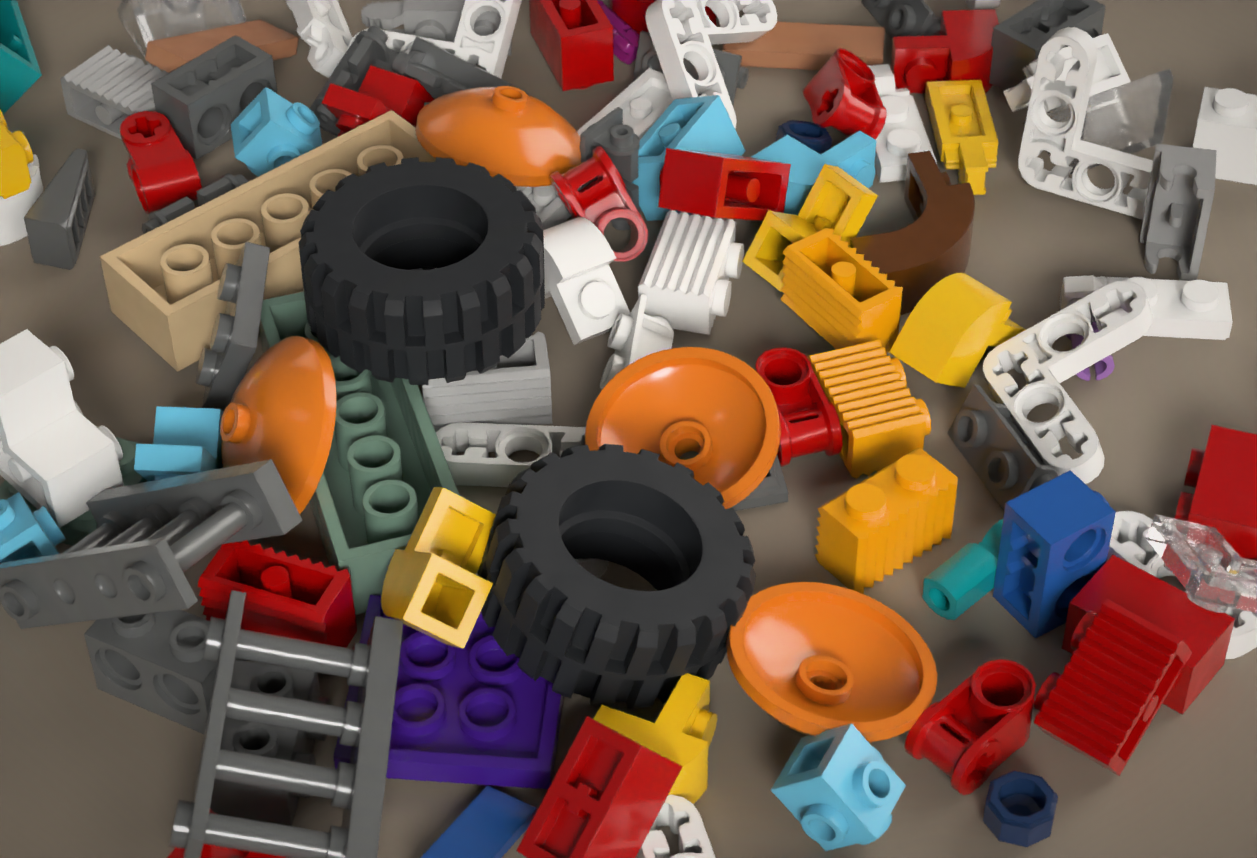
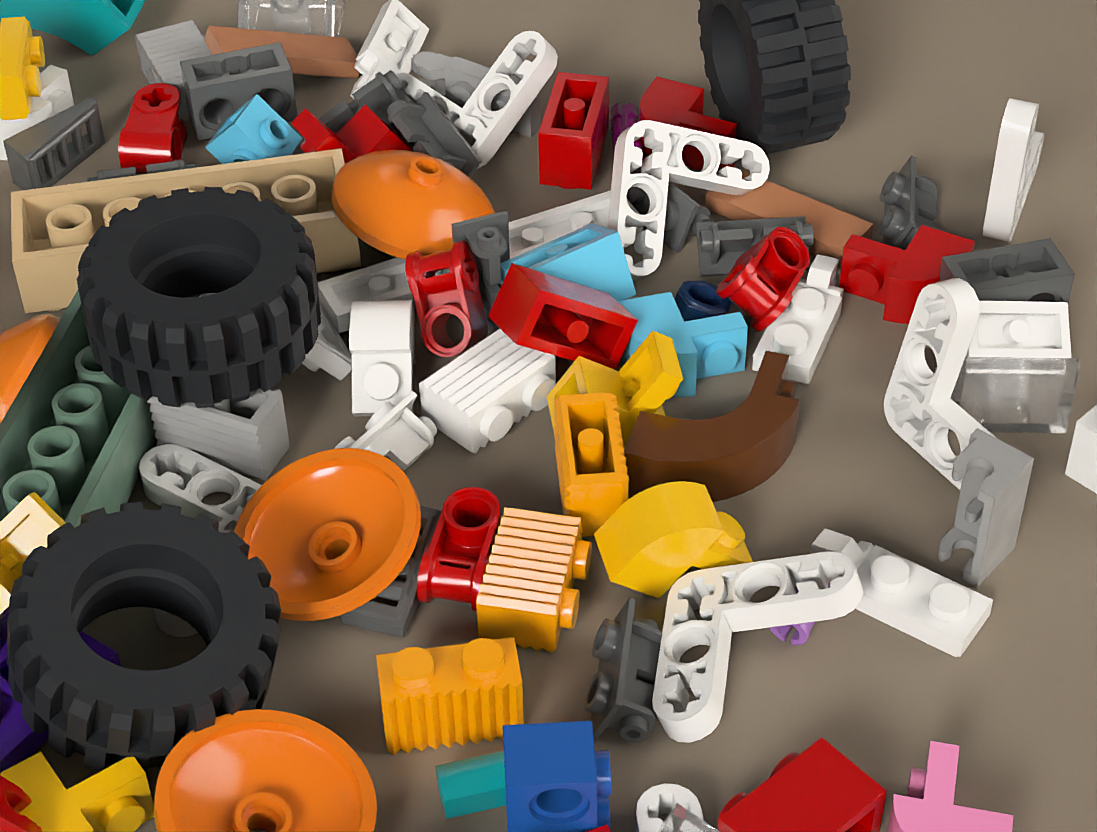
camera: 30 degrees right, 0 degrees up
(237, 330) = (56, 281): dark grey plate -> none
(782, 83) = (725, 241): none -> dark grey hinge
(963, 129) = (860, 349): yellow hinge -> none

